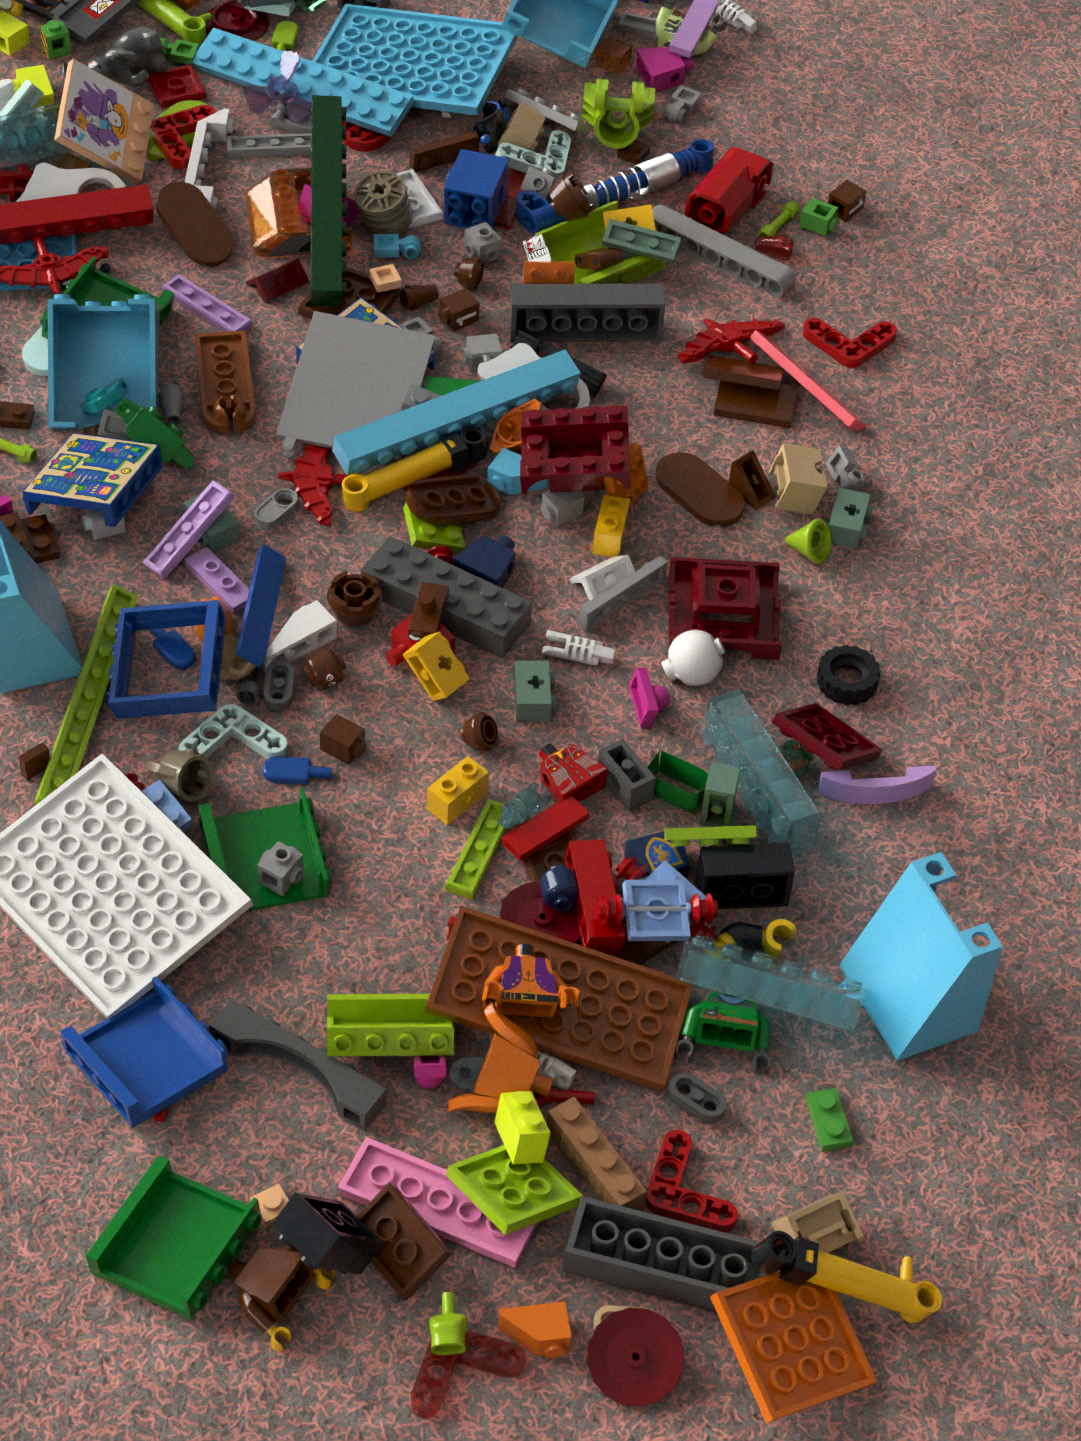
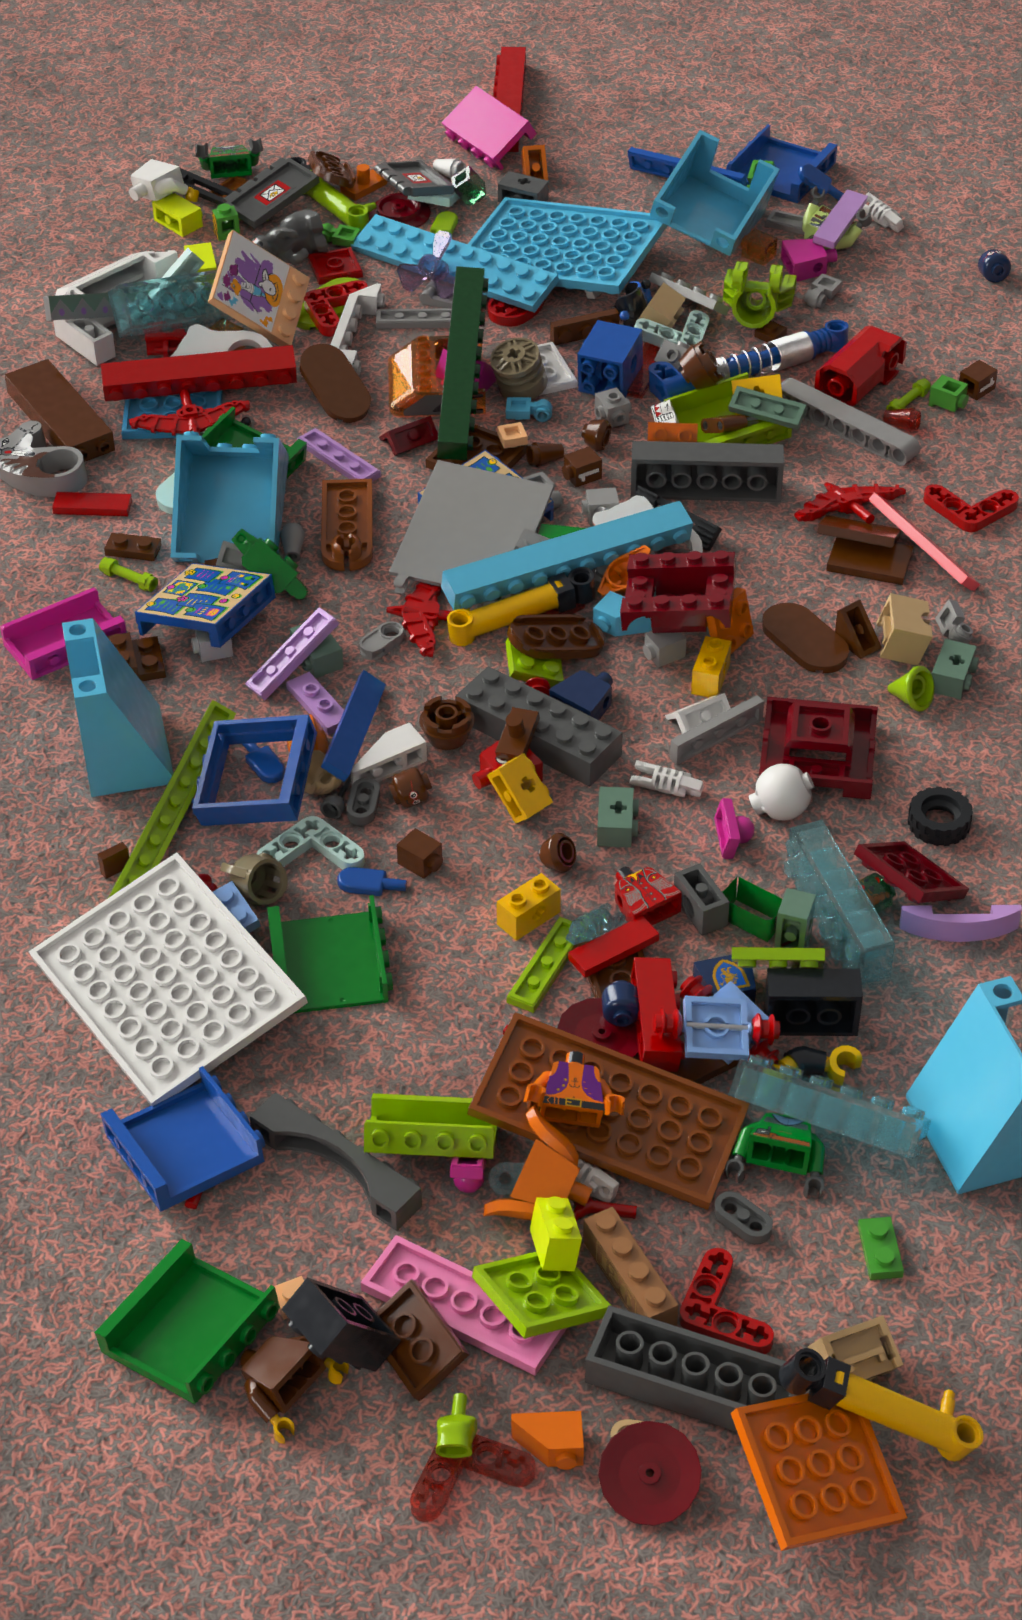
camera: 10 degrees right, 5 degrees down
(100, 399) = (224, 531): teal wing -> none
(280, 868) = (341, 970): light grey brick -> none
(852, 71) = (994, 265): none -> dark blue head

